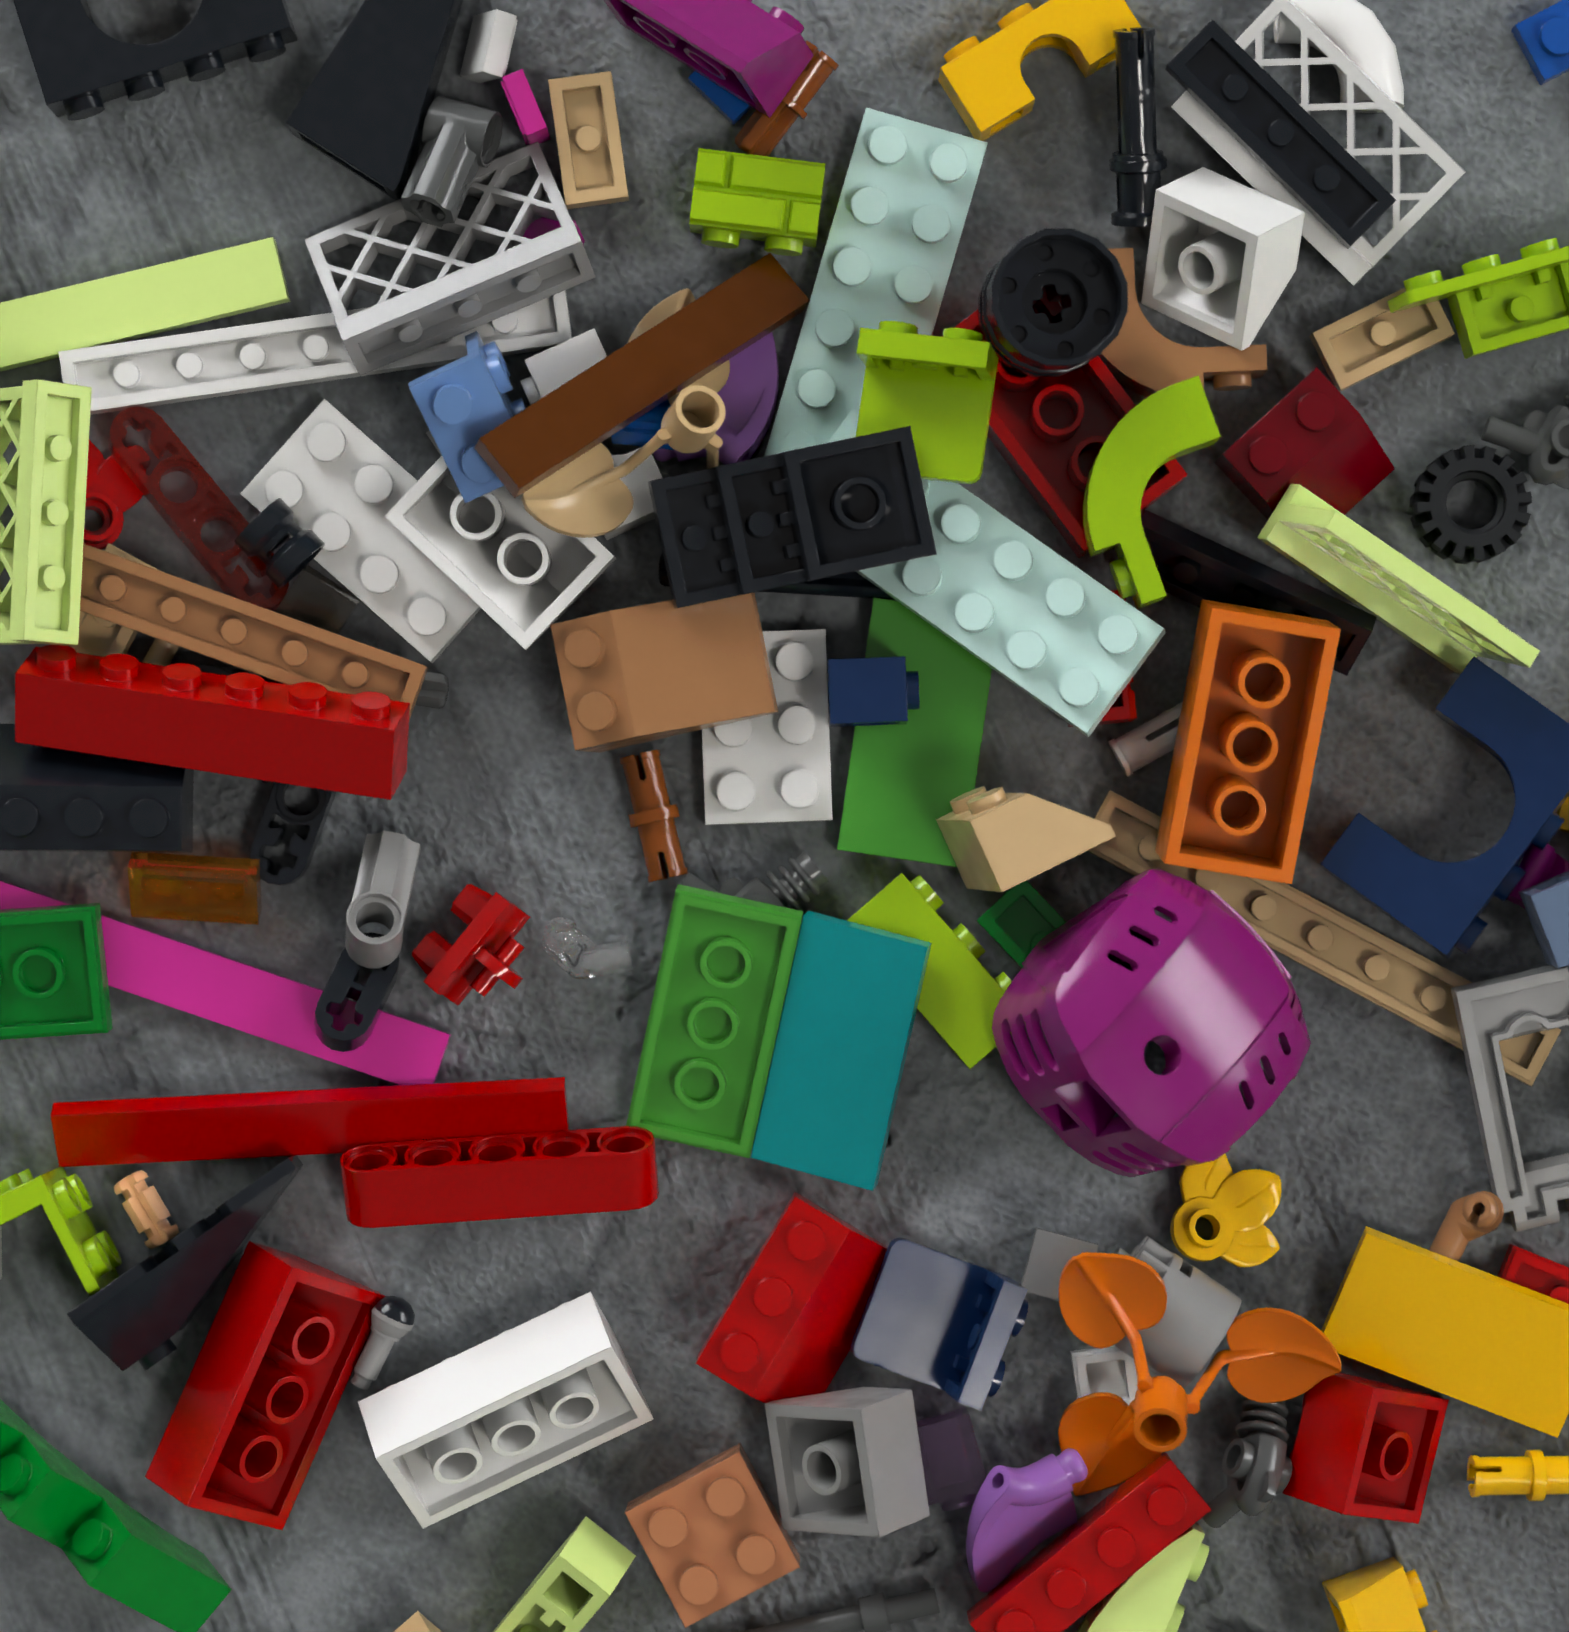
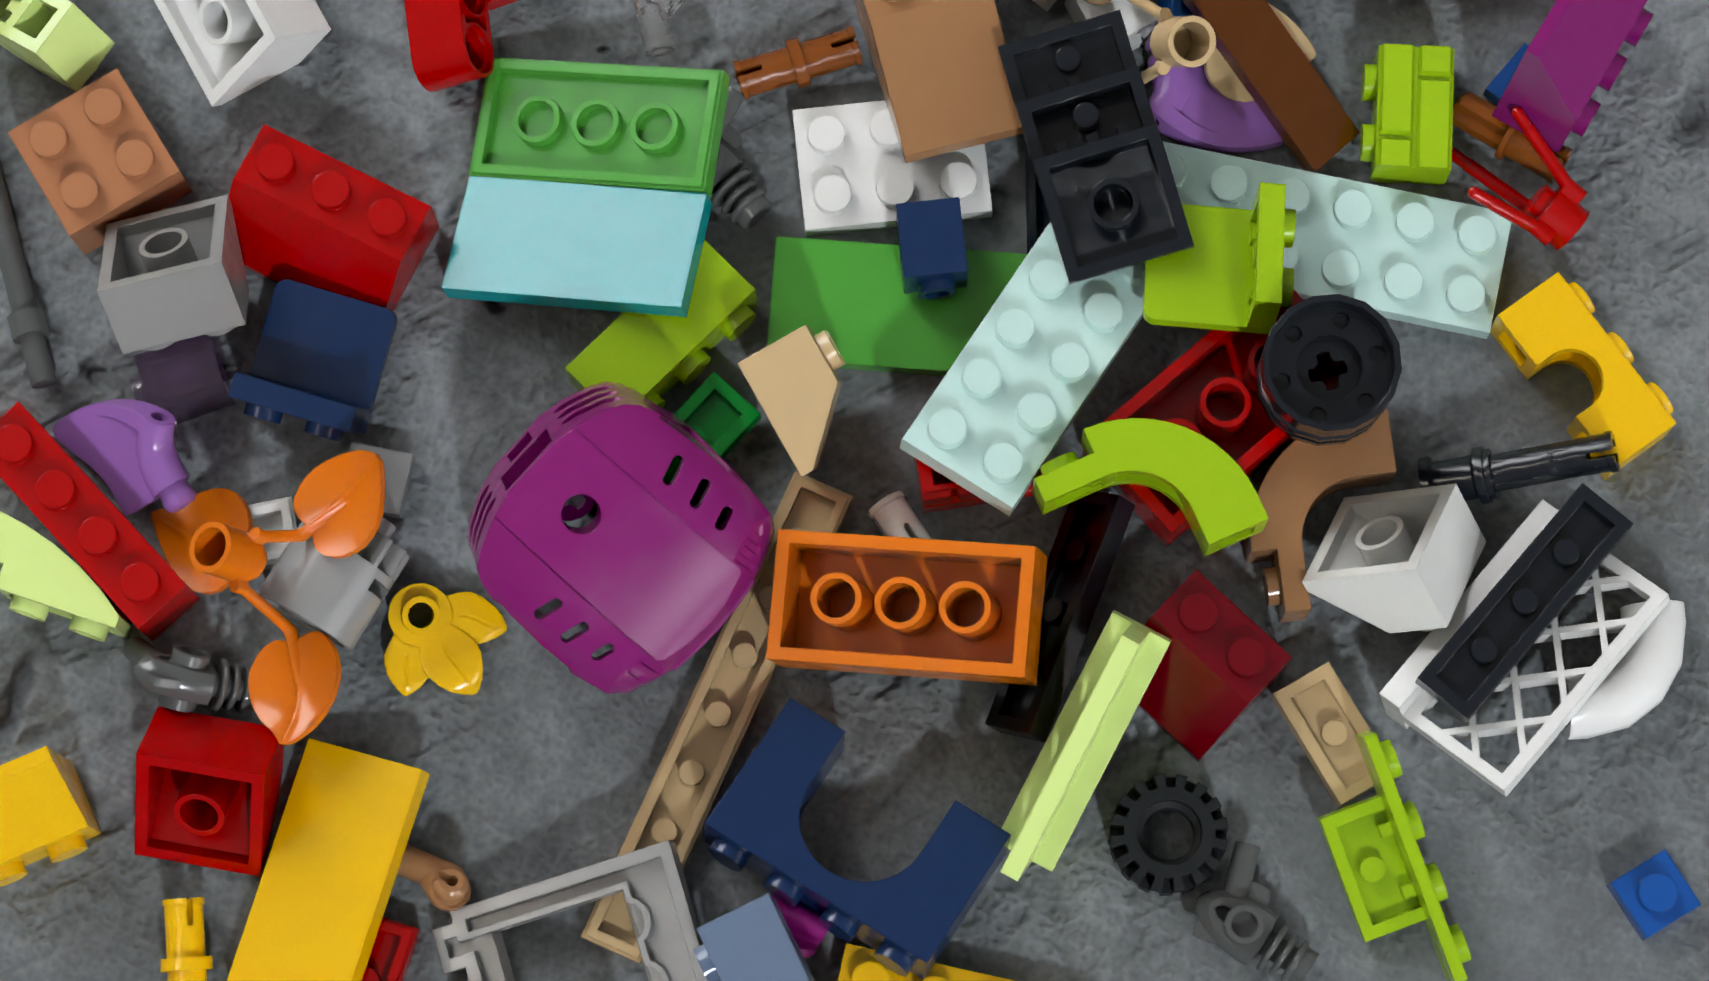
camera: 85 degrees right, 10 degrees down
(875, 66) = (1549, 214): none -> red plant

